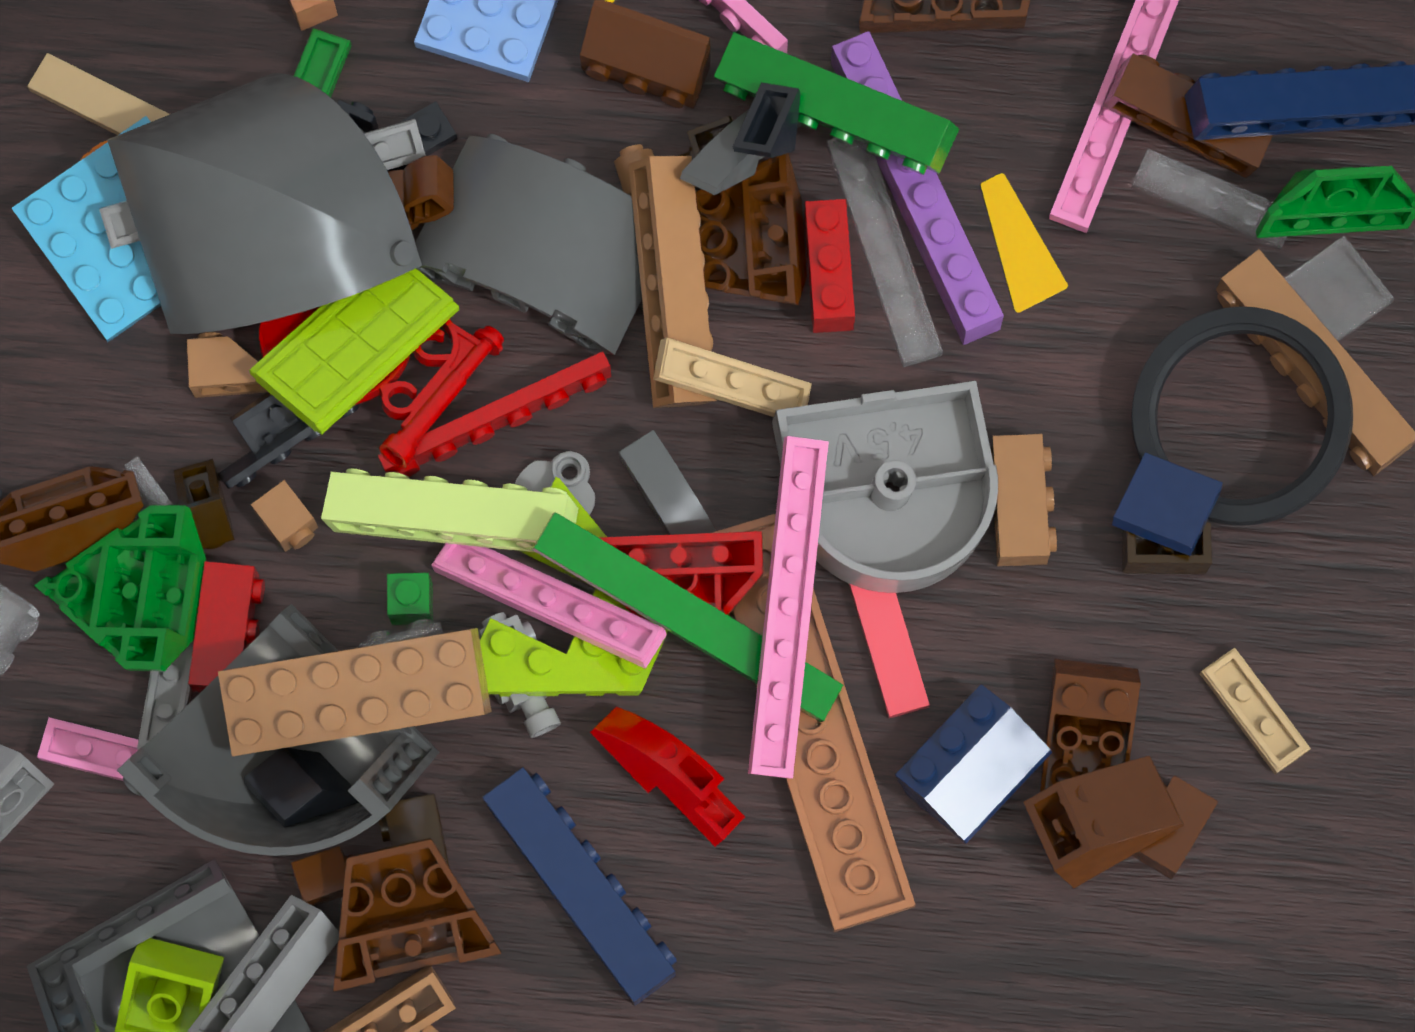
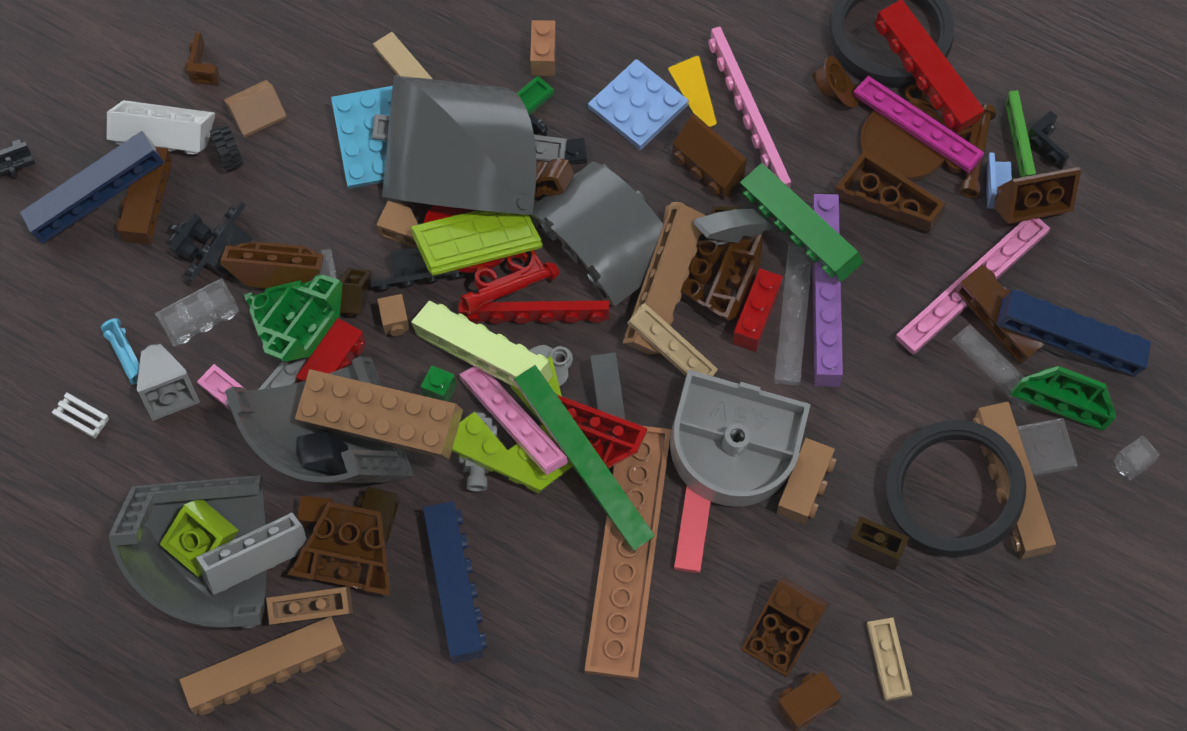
camera: 25 degrees right, 10 degrees down
(664, 761) = (534, 534): red slope -> none
(770, 122) = (758, 215): black slope -> none
(788, 607) = (641, 476): bright pink plate -> none
(973, 764) = (708, 612): slope -> none
(1024, 257) = (872, 351): yellow sticker -> none
(1102, 818) = (767, 674): reddish brown slope -> none
(1167, 504) = (888, 515): dark blue tile -> none

